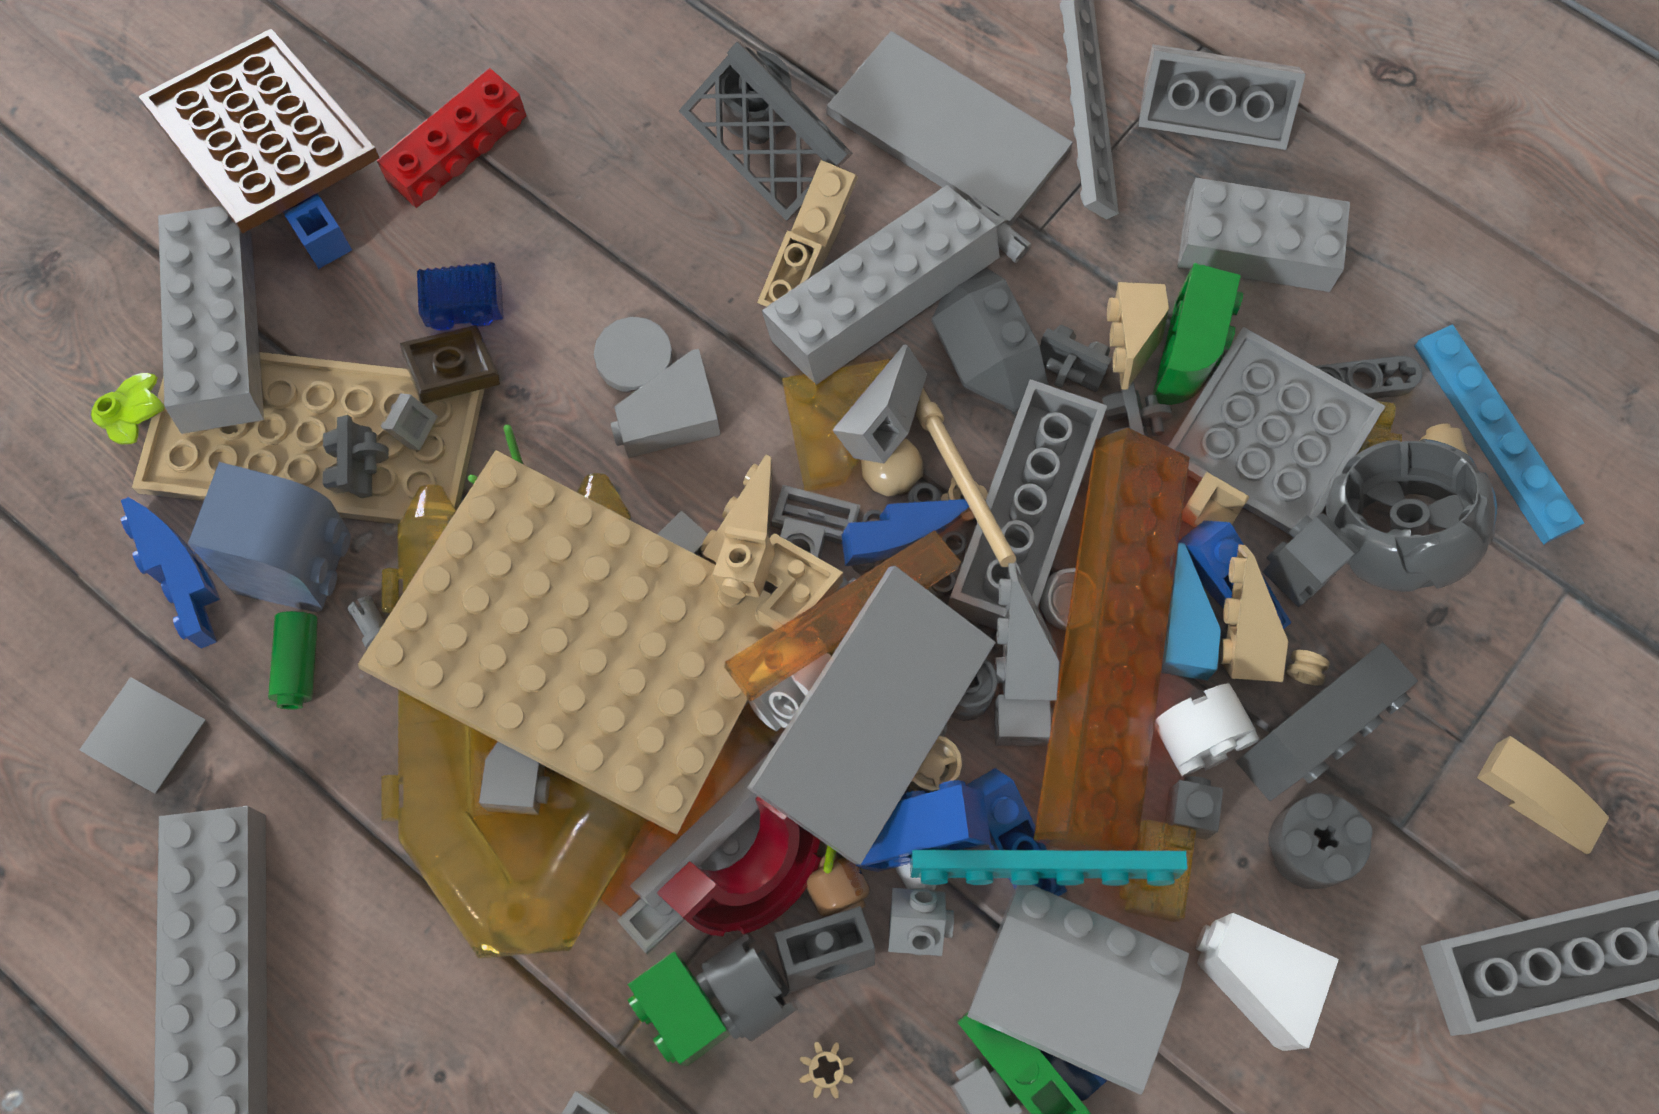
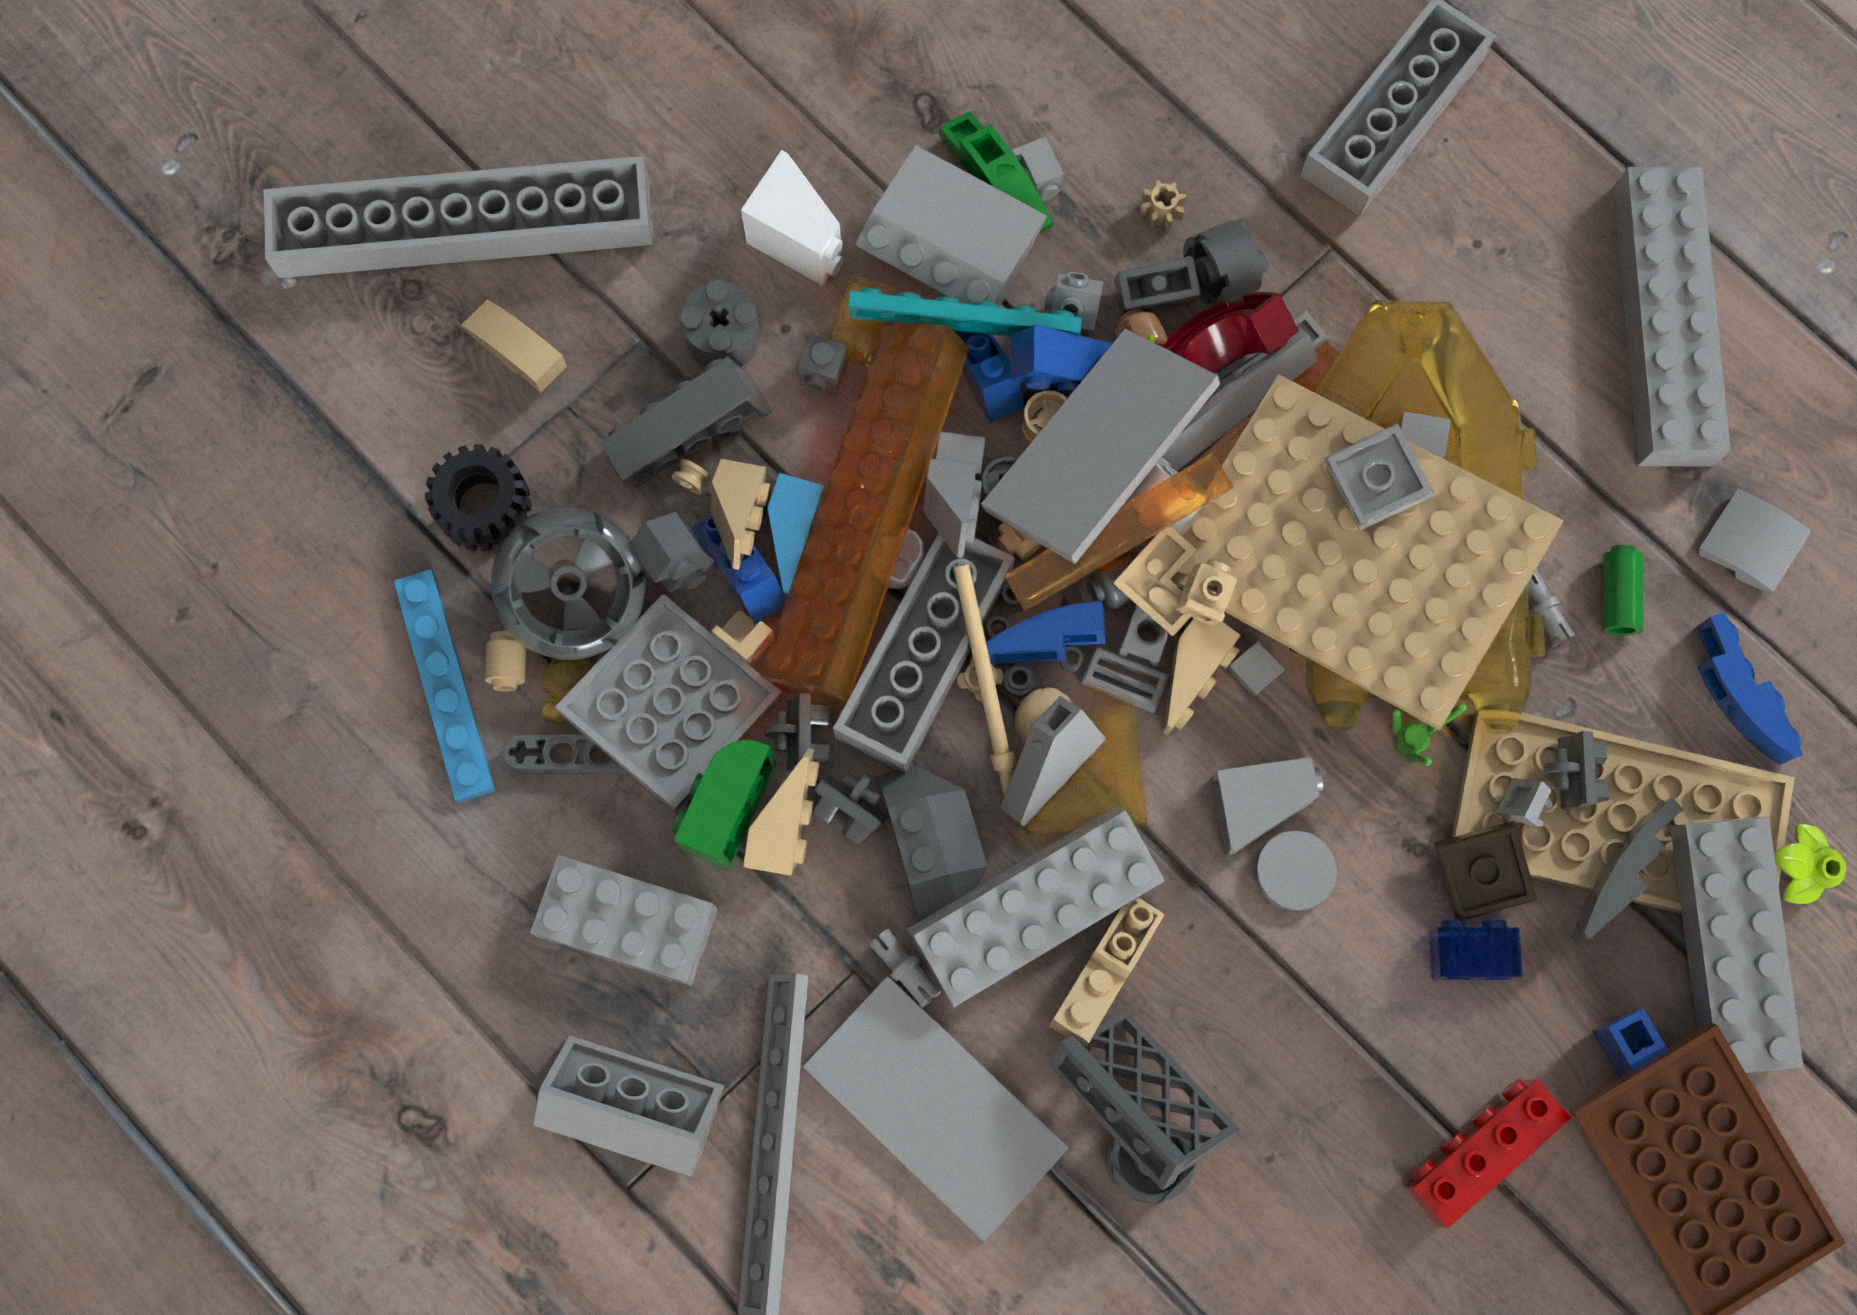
camera: 175 degrees left, 5 degrees up
(270, 537) = (1650, 669): sand blue brick -> none
(321, 357) = (1620, 879): none -> dark grey slope
(563, 696) = (1378, 477): none -> light grey plate
(678, 1009) = (1289, 246): green brick -> none
(1205, 729) = (800, 422): white brick -> none
(1549, 590) = (457, 477): none -> black tyre

